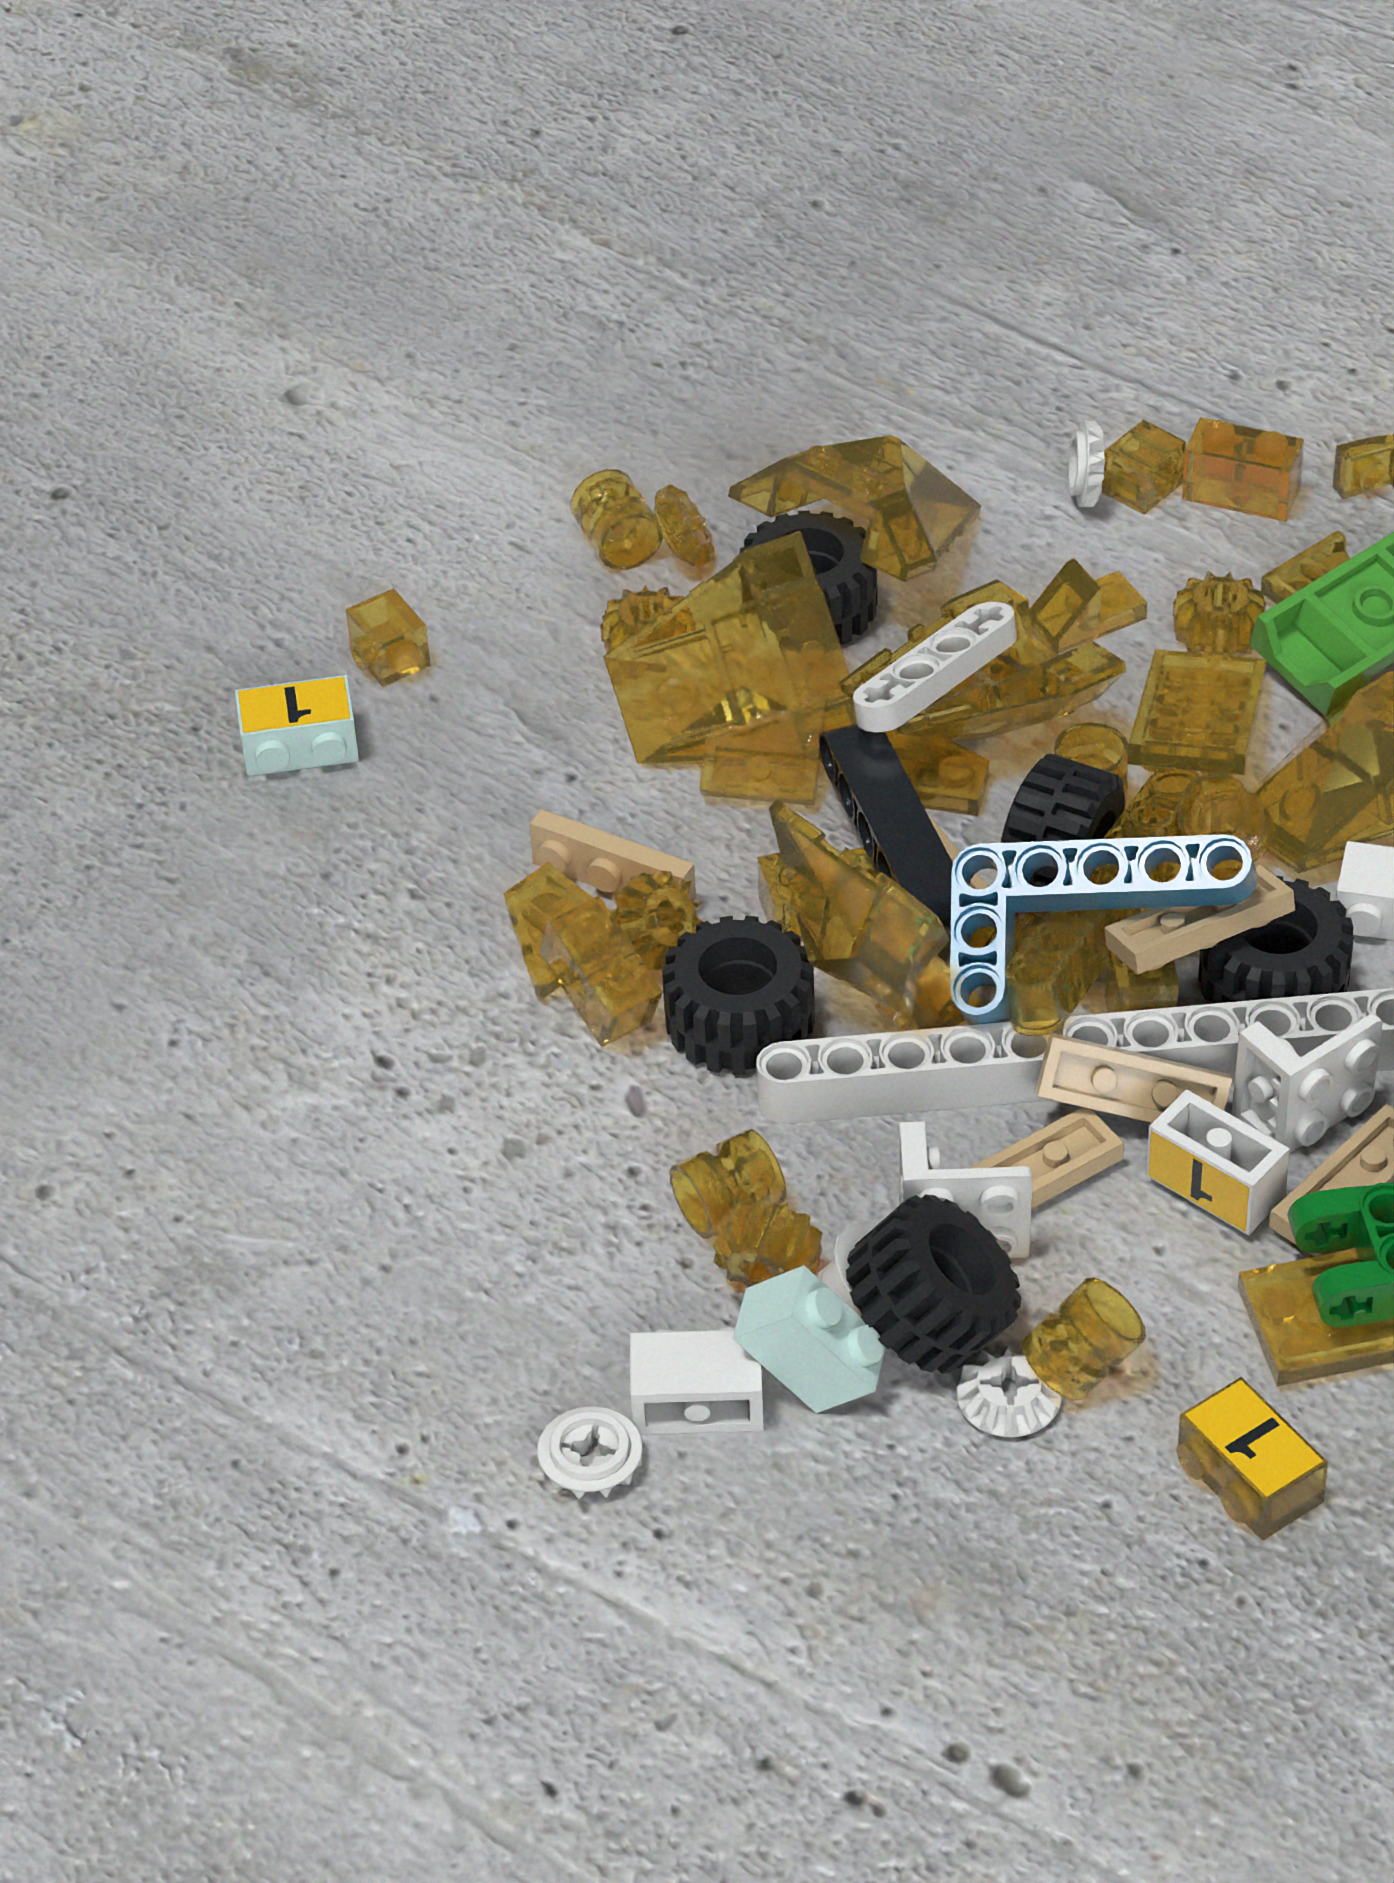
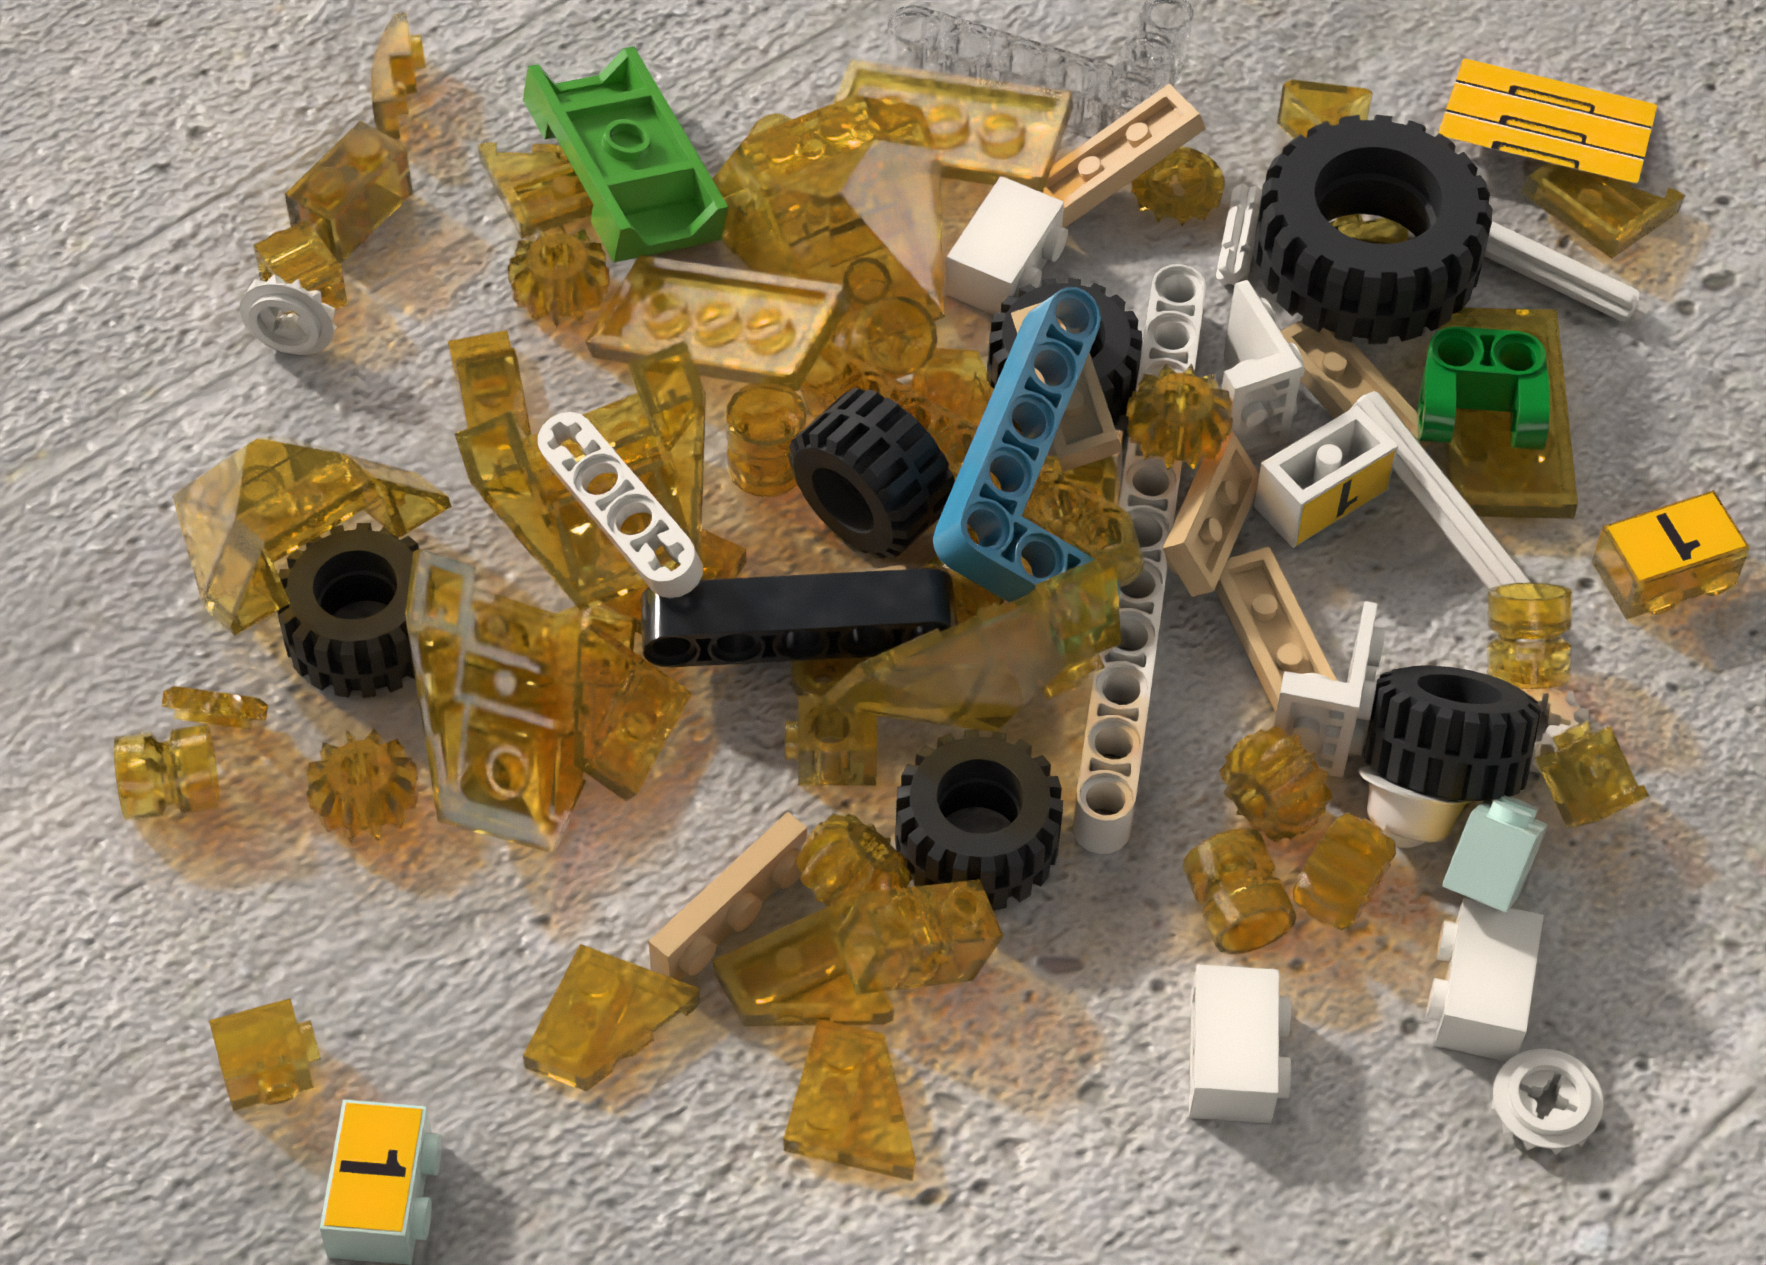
camera: 80 degrees left, 10 degrees up
(454, 986) = (850, 1104): none -> clear yellow wing
(485, 822) = (602, 1016): none -> clear yellow wing
(574, 1211) = (1237, 1044): none -> white brick
(845, 1181) = (1275, 783): none -> clear yellow gear
(949, 1437) = (1569, 777): none -> clear yellow brick
(1206, 1014) = (1179, 416): none -> clear yellow gear
(1217, 1273) = (1443, 500): none -> white axle

